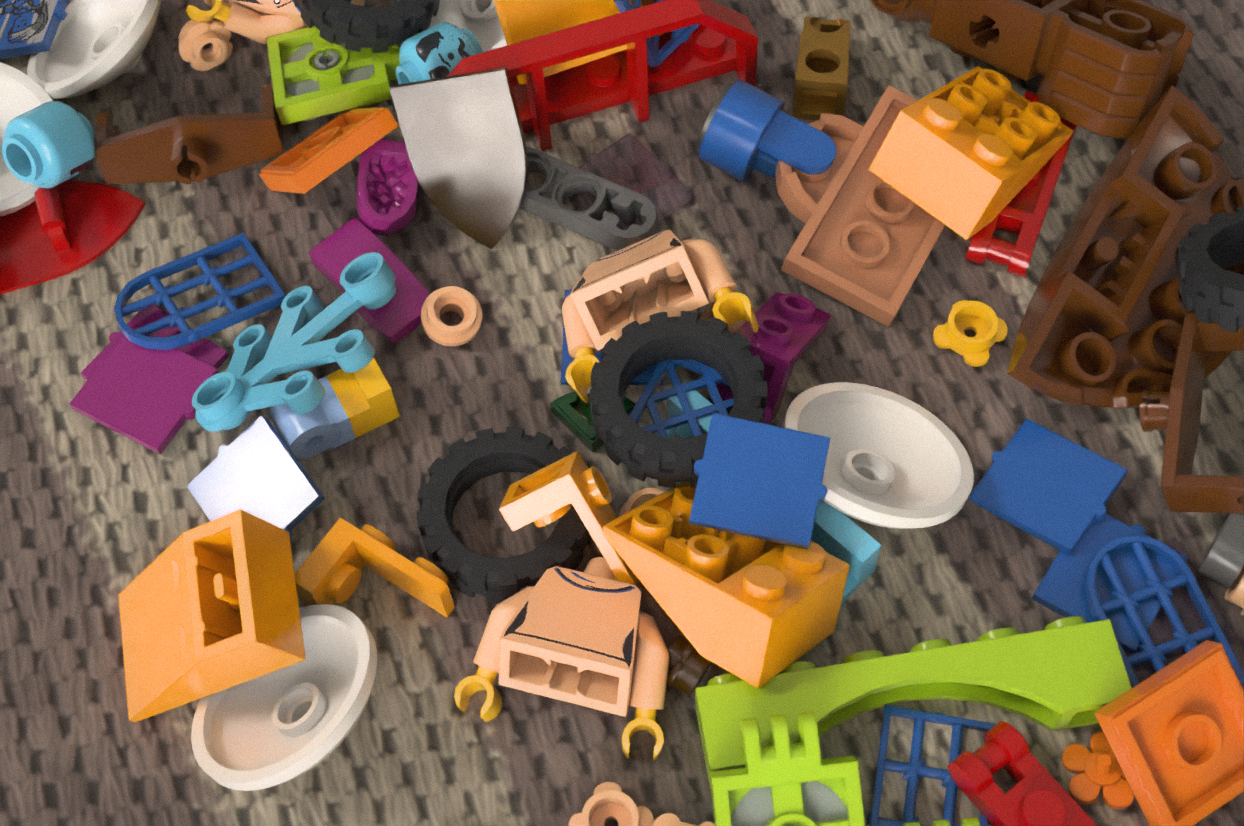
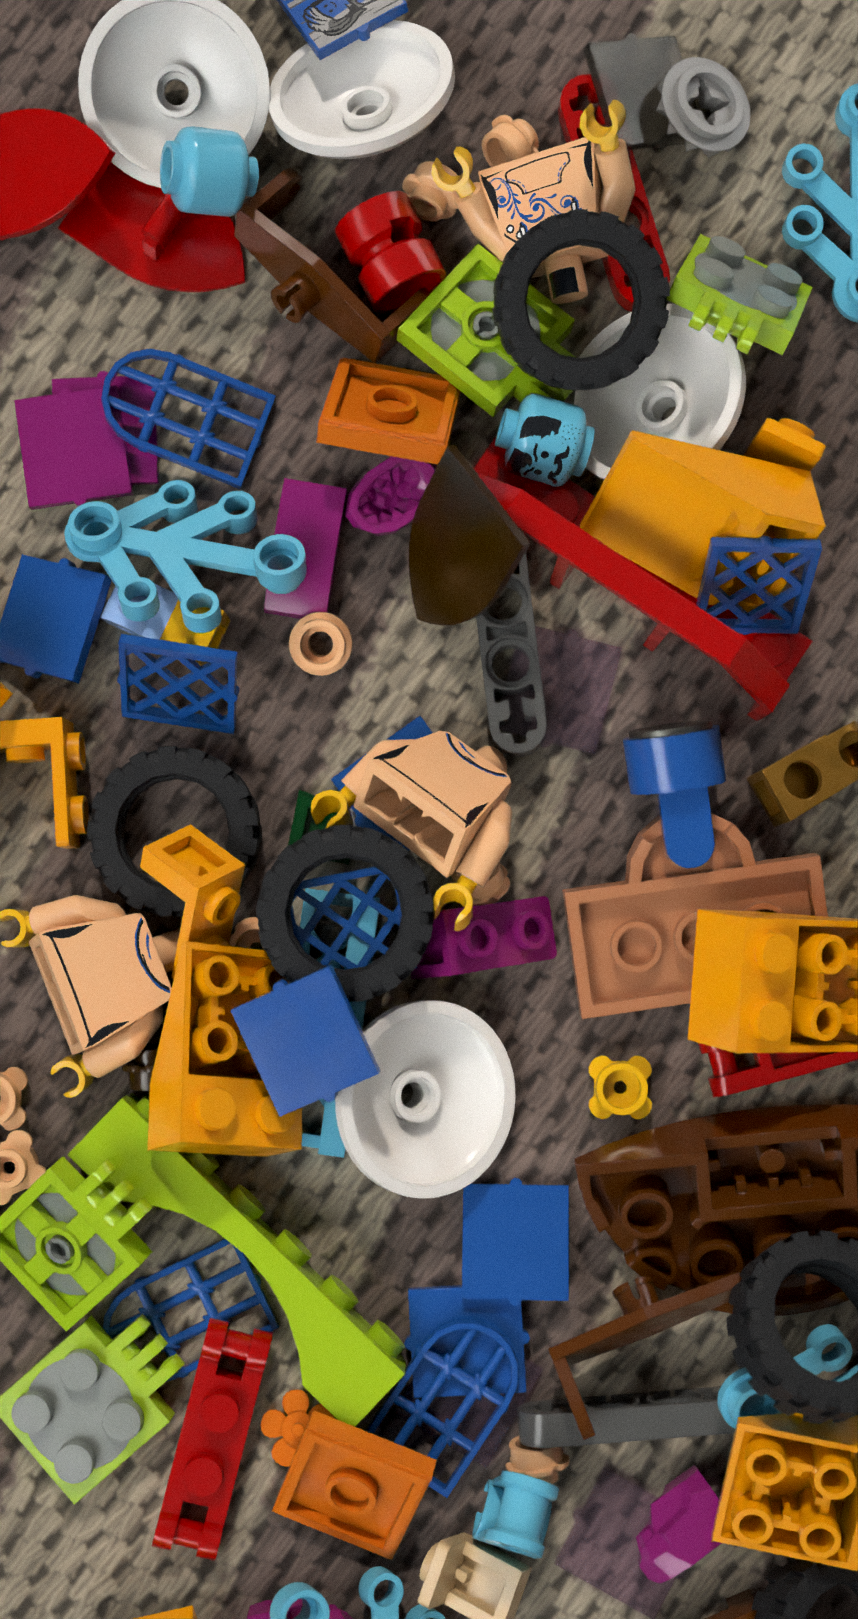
camera: 50 degrees right, 25 degrees up
(208, 84) = (385, 243): none -> red wheel
(366, 390) = (186, 655): none -> blue window

